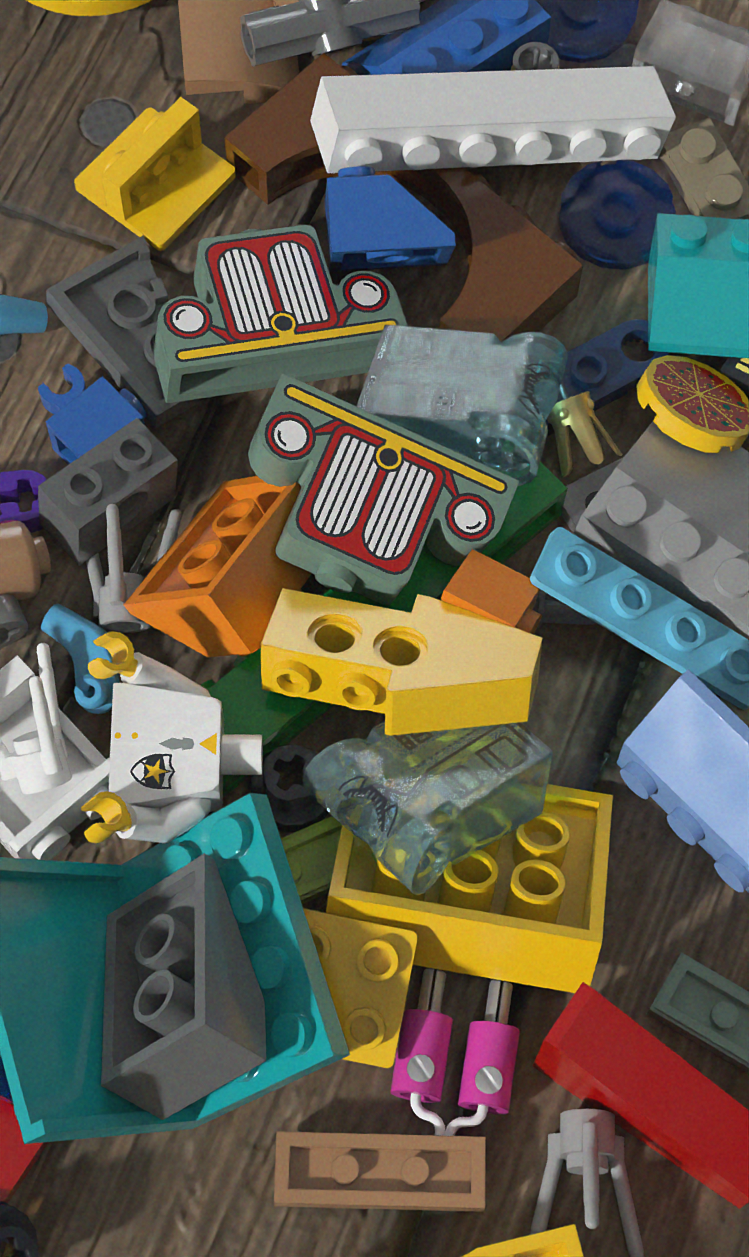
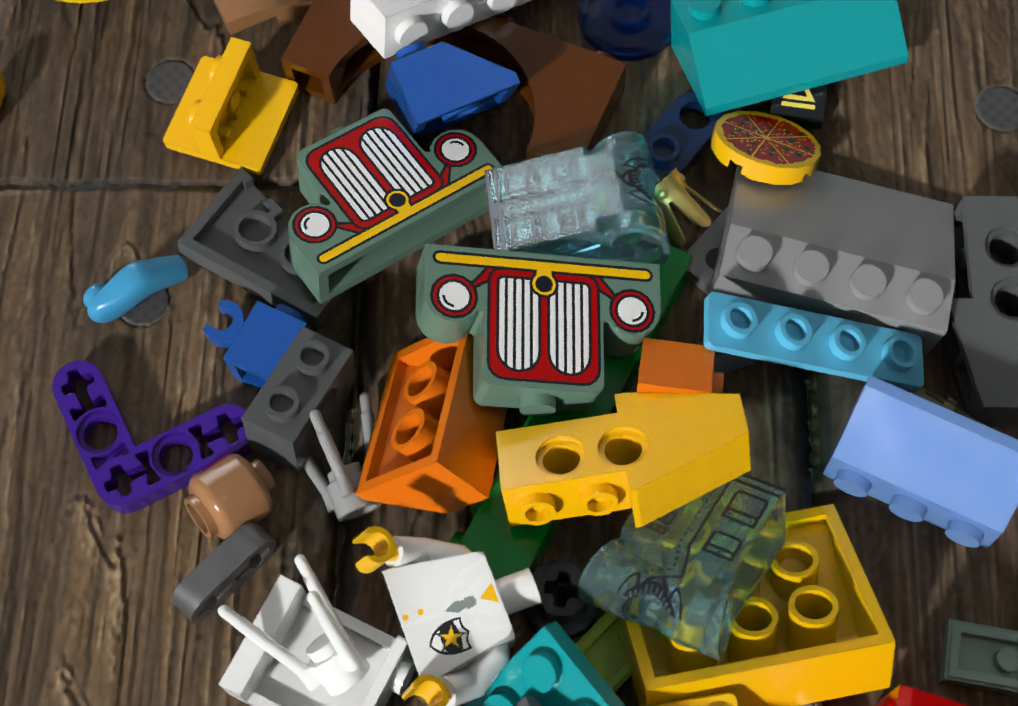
camera: 15 degrees left, 0 degrees up
(77, 637) = (334, 541): dark azure arm -> none

